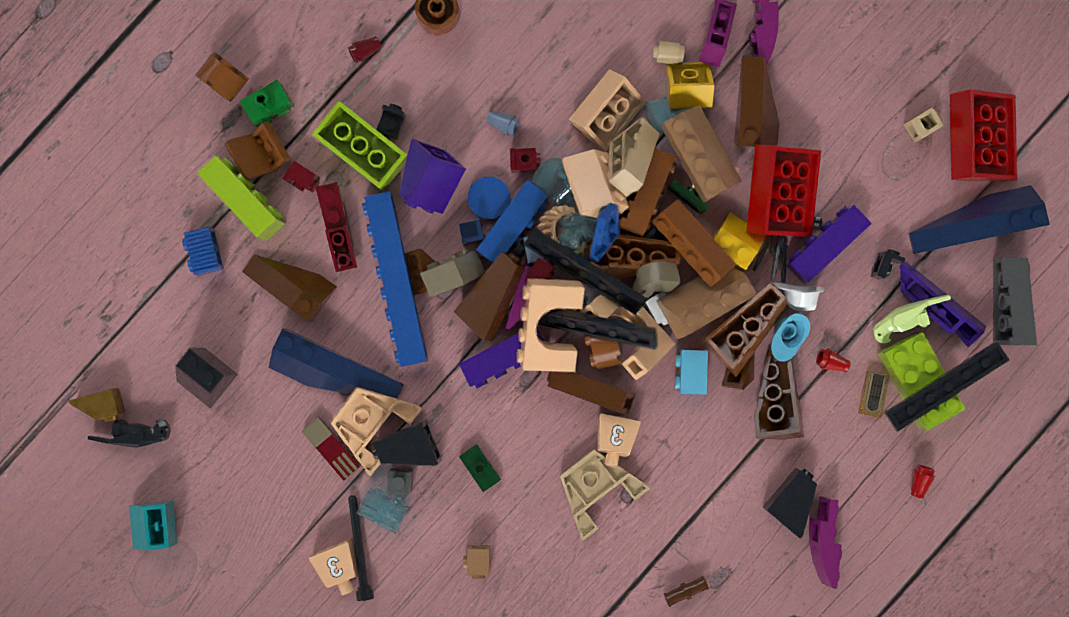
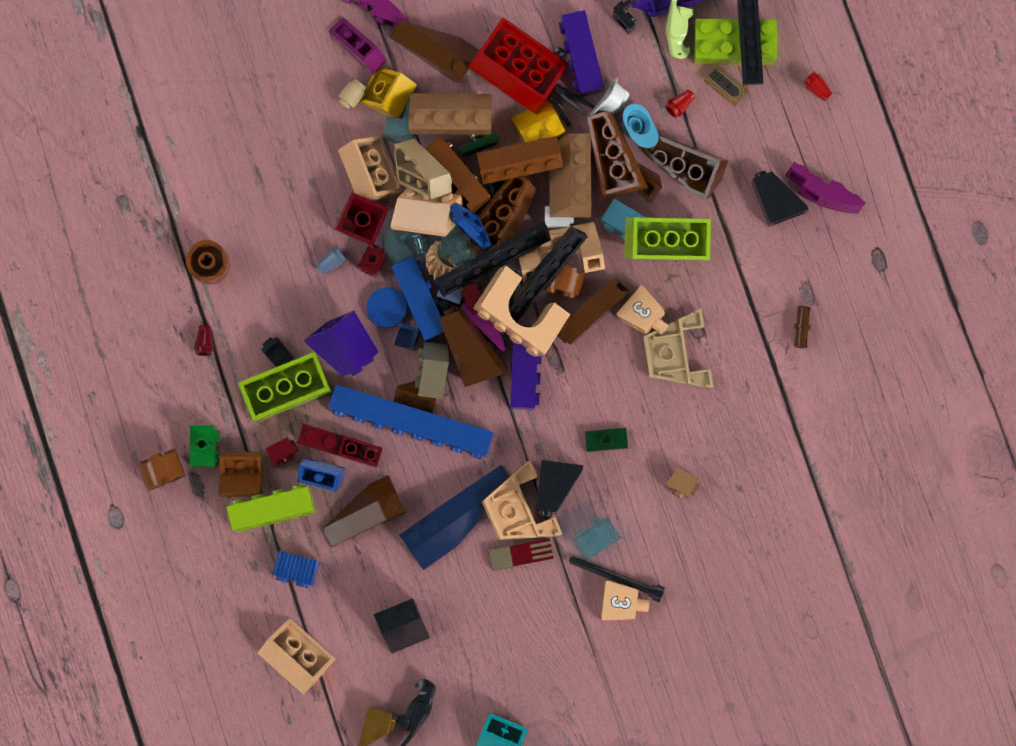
camera: 60 degrees left, 5 degrees down
(124, 297) = (296, 656): none -> light nougat slope
(299, 225) = (321, 474): none -> blue brick
(399, 481) = (580, 510): dark grey brick -> none
(556, 128) = (361, 219): none -> dark red slope
(656, 278) = (530, 205): dark tan brick -> none
(697, 422) = (667, 238): none -> lime brick

